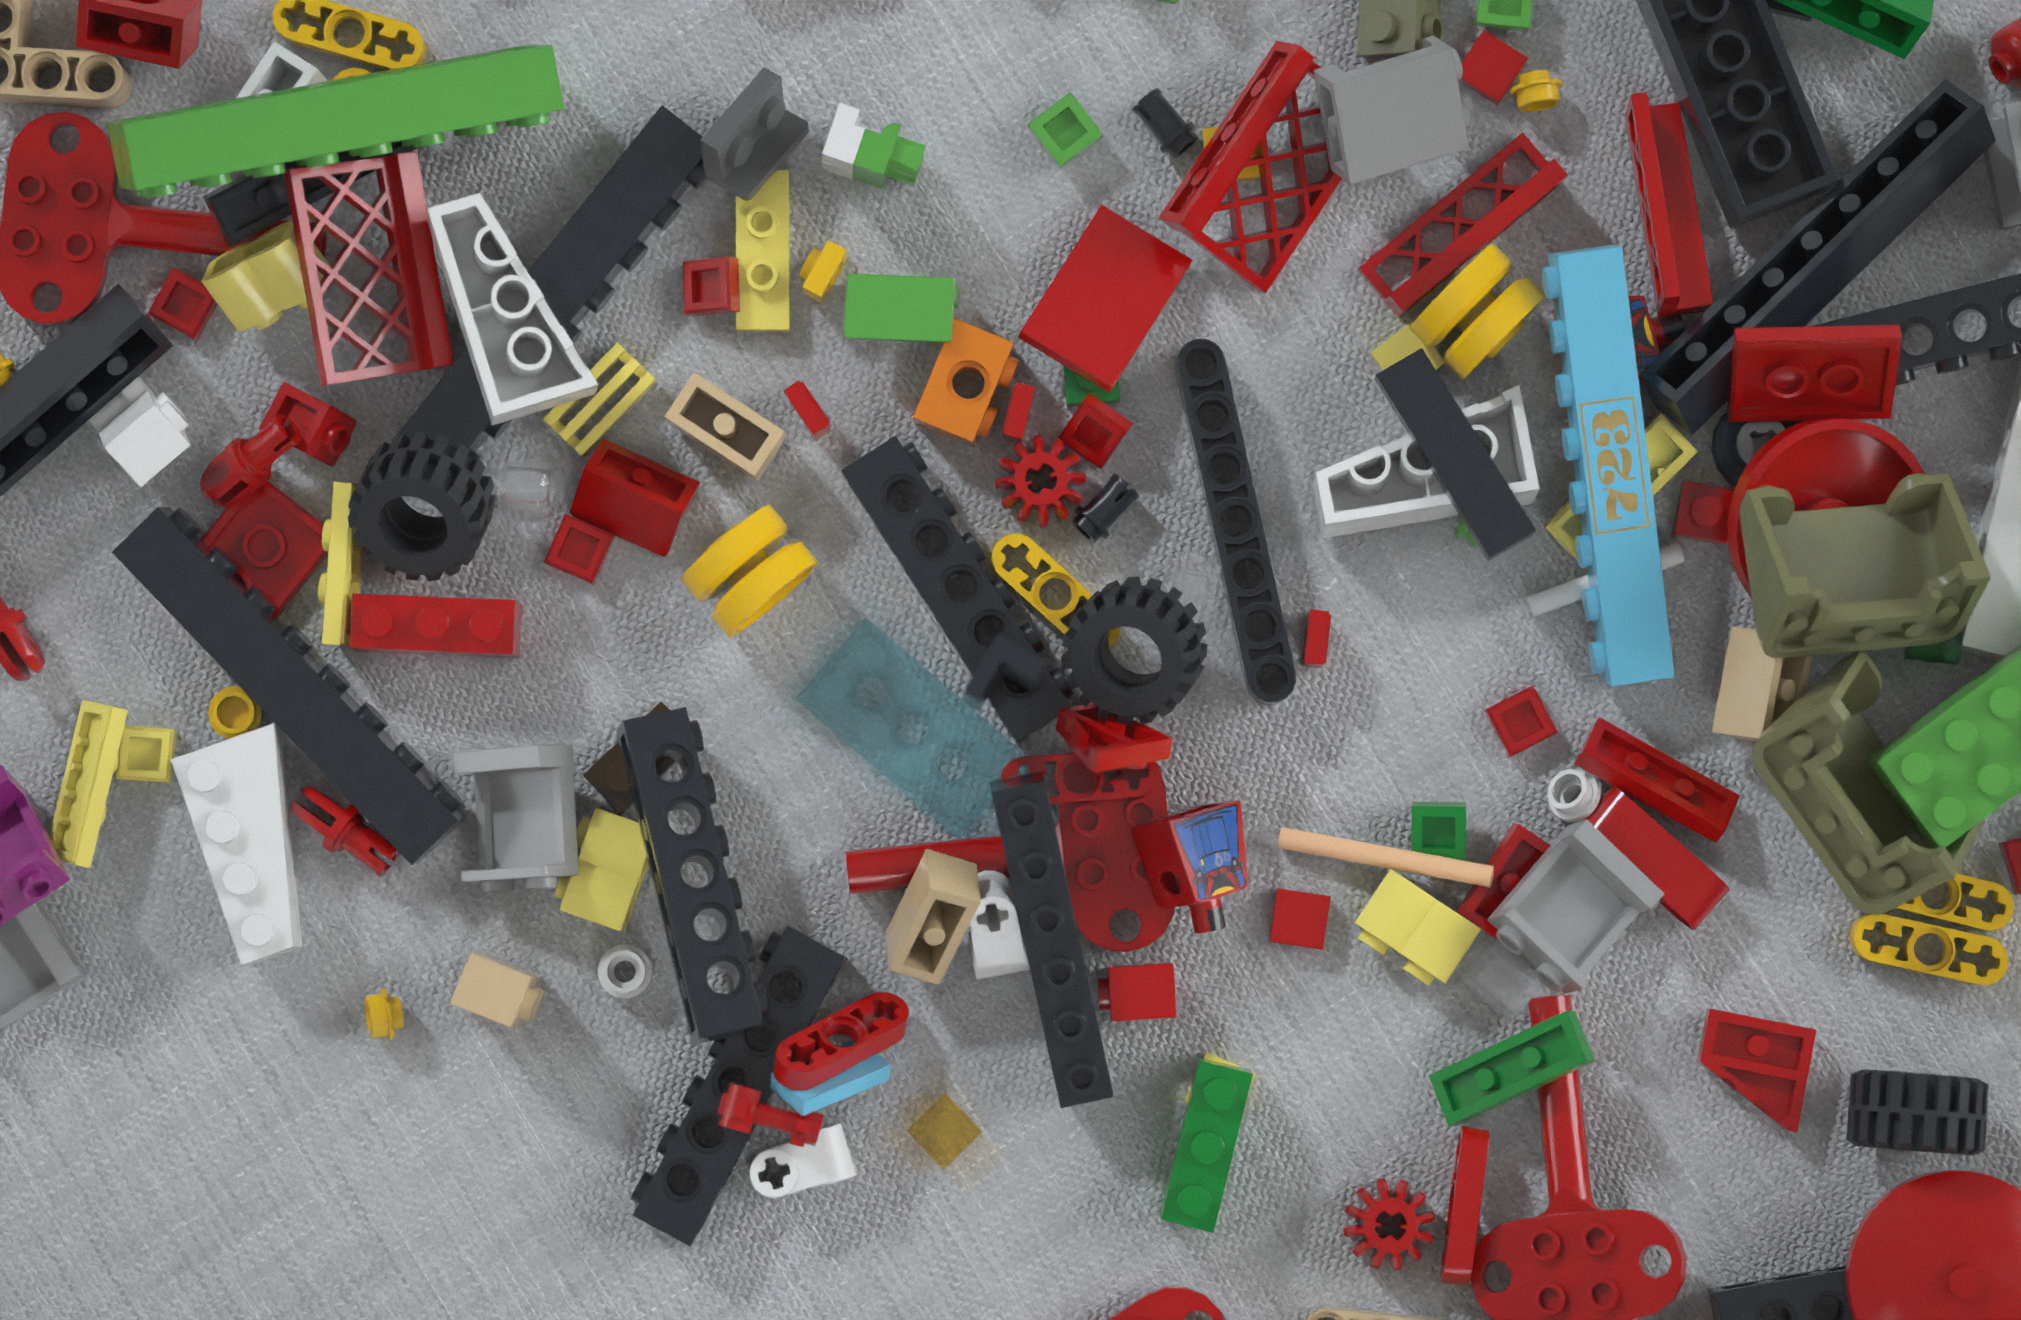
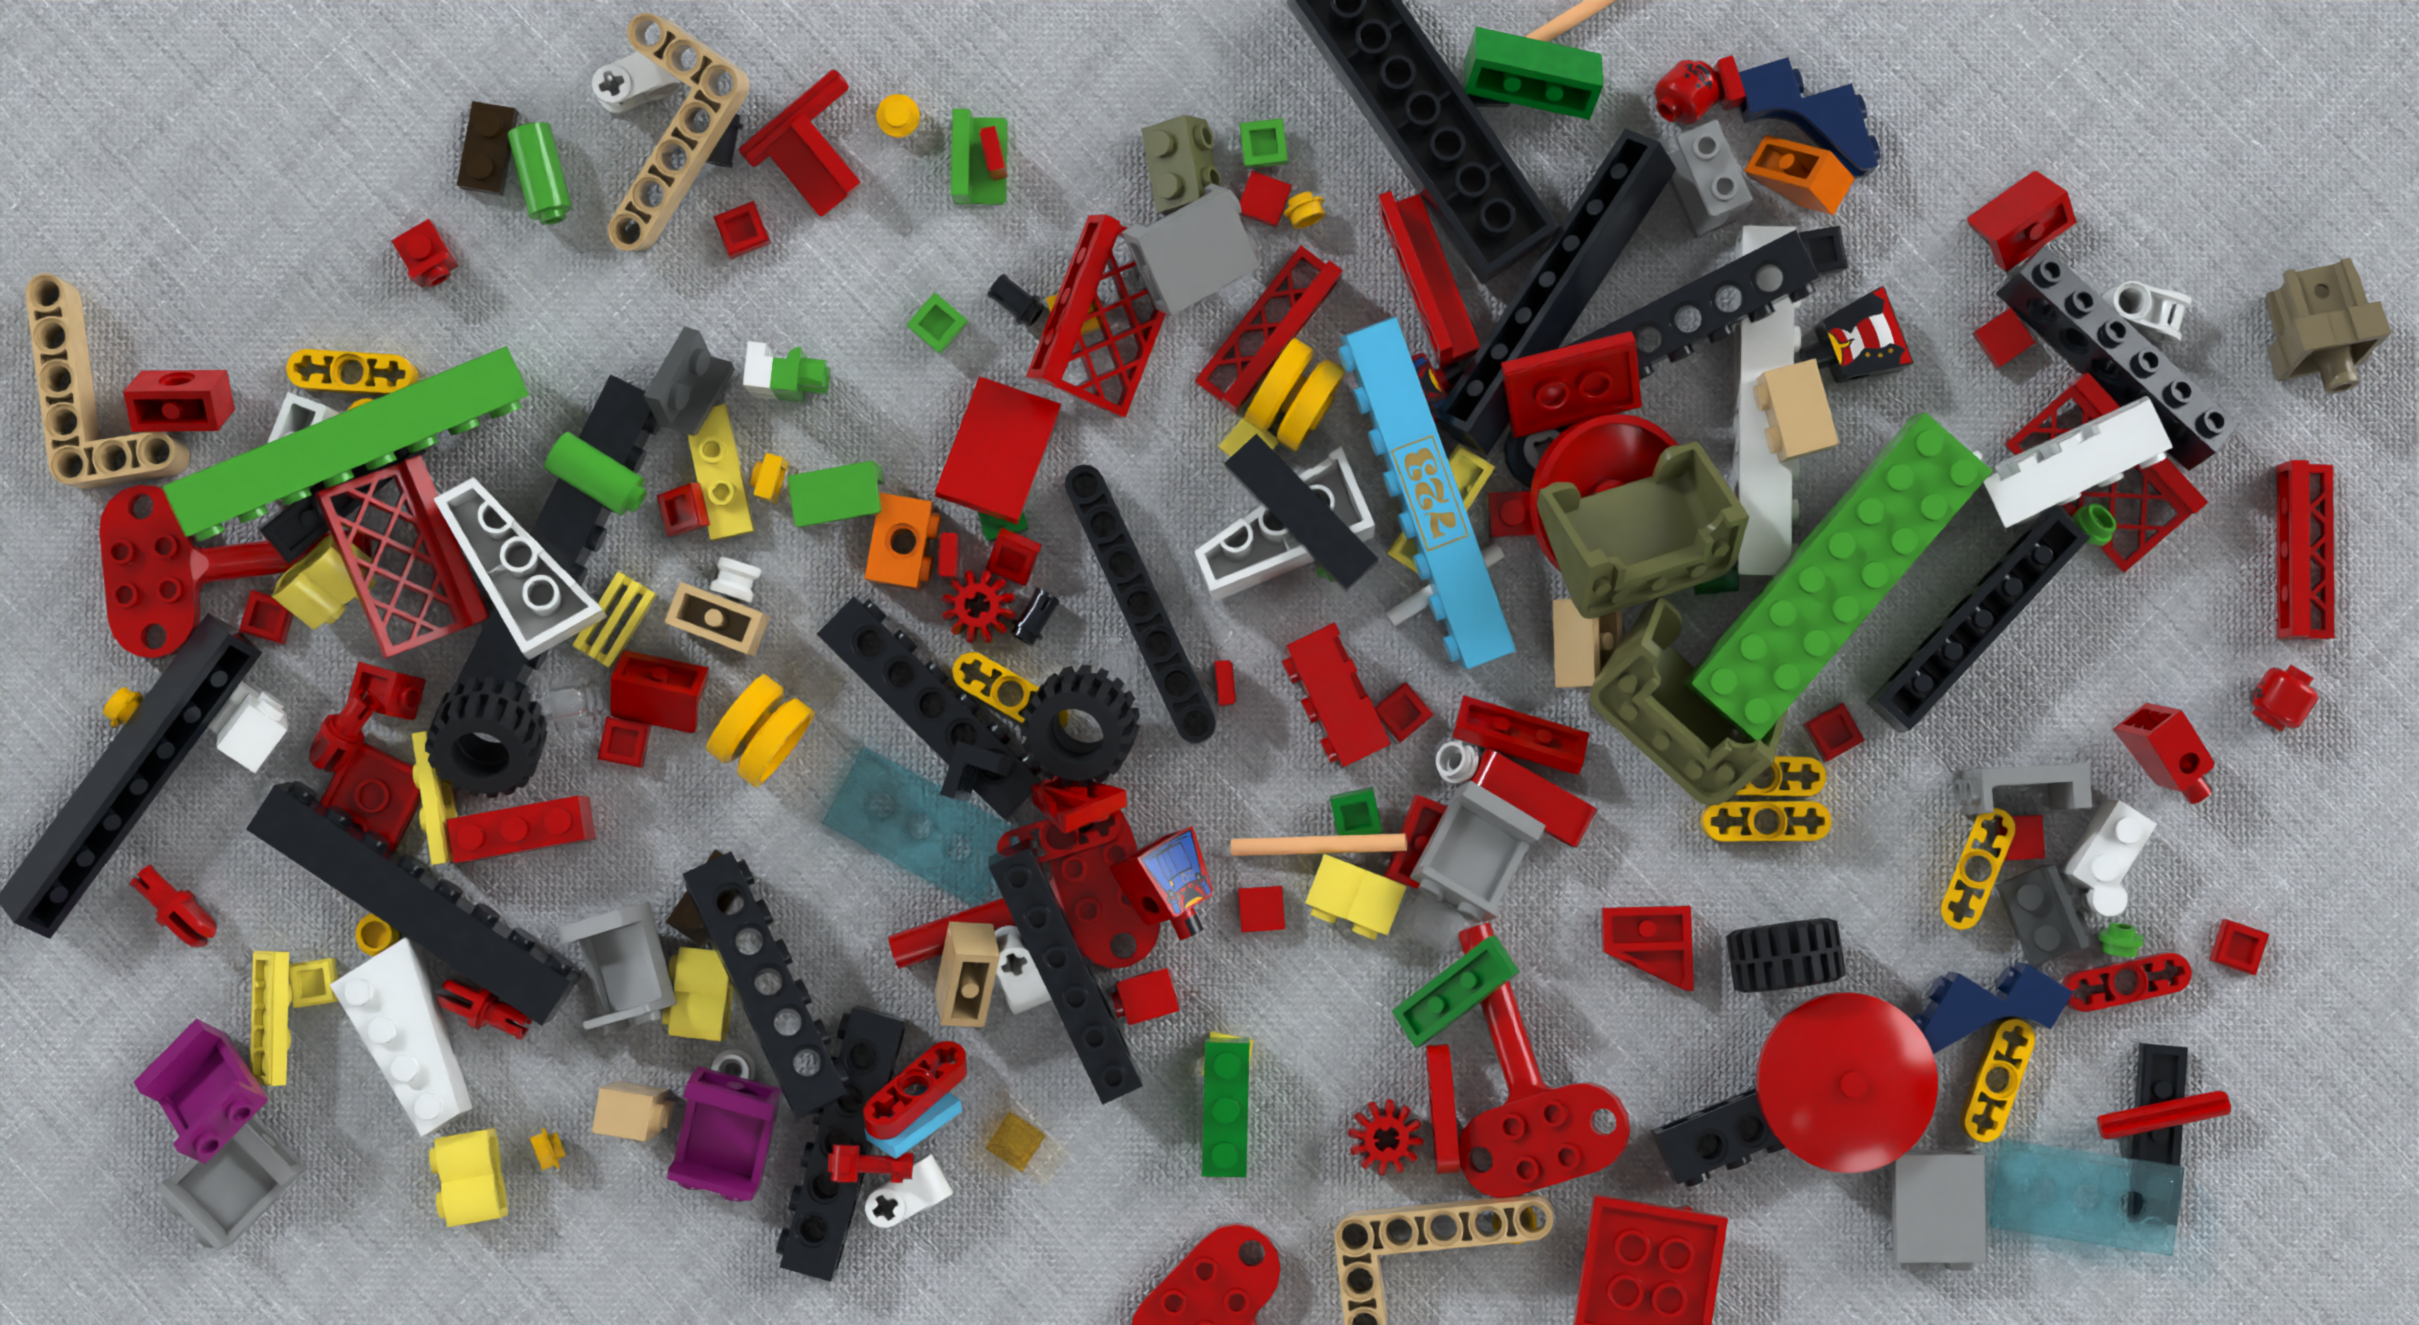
camera: 10 degrees left, 0 degrees up
(283, 1027) = (469, 1177): none -> light yellow brick
(600, 1044) = (725, 1134): none -> magenta panel
(621, 221) = (596, 474): none -> bright green brick
(756, 384) = (735, 579): none -> white wheel
(808, 409) = (781, 591): red tile -> none
(1444, 684) = (1334, 696): none -> red wedge

